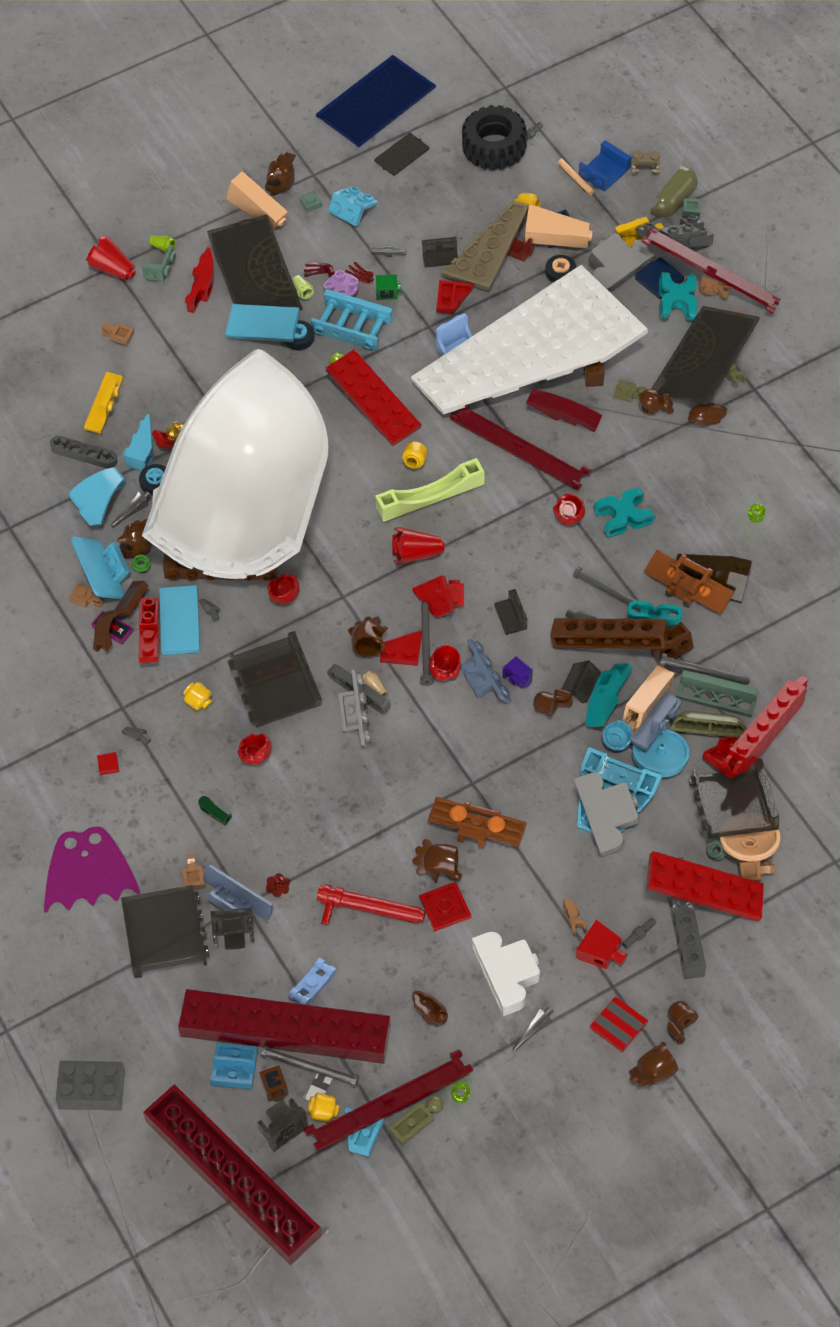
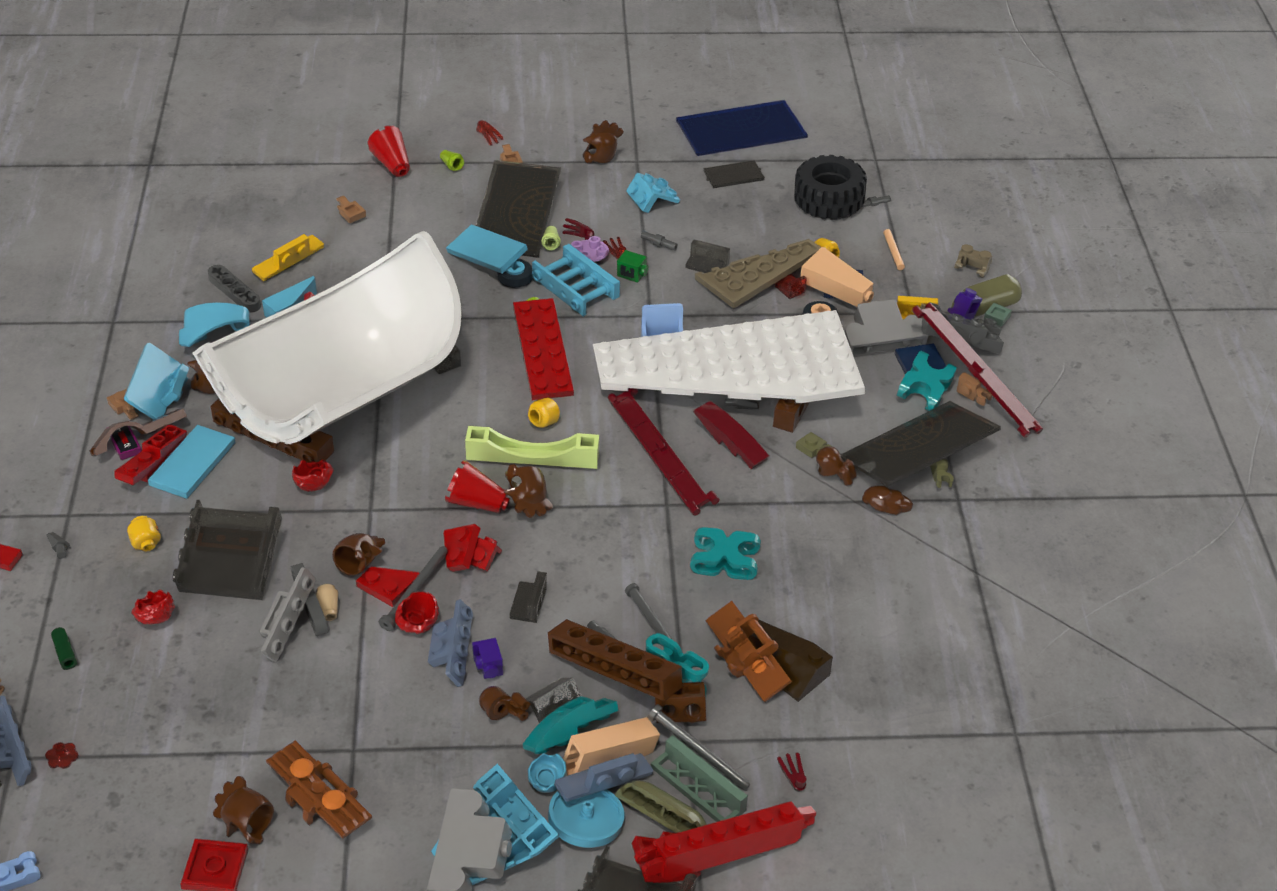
camera: 25 degrees right, 15 degrees down
(140, 559) = (200, 397): bright green plate -> none
(159, 272) = (433, 178): sand green bracket -> none
(171, 199) = (485, 128): none -> clear red piece
(203, 281) = (462, 201): red slope -> none
(210, 220) = (510, 156): none -> medium nougat plate
(210, 609) = (230, 464): dark grey bar -> none
(255, 201) = (559, 153): light nougat slope -> none
(310, 201) = (616, 178): sand green plate -> none
(340, 897) = (109, 798): red cylinder -> none
(451, 295) = (693, 296): red wing -> none
(453, 528) = (531, 493): none -> reddish brown piece
(569, 509) = (667, 525): red hair -> none
(606, 167) = (930, 254): blue panel -> none
(665, 210) = (966, 304): none -> dark purple brick
(753, 516) = (875, 622): clear neon green bush -> none
(773, 658) = (797, 780): none -> dark red piece

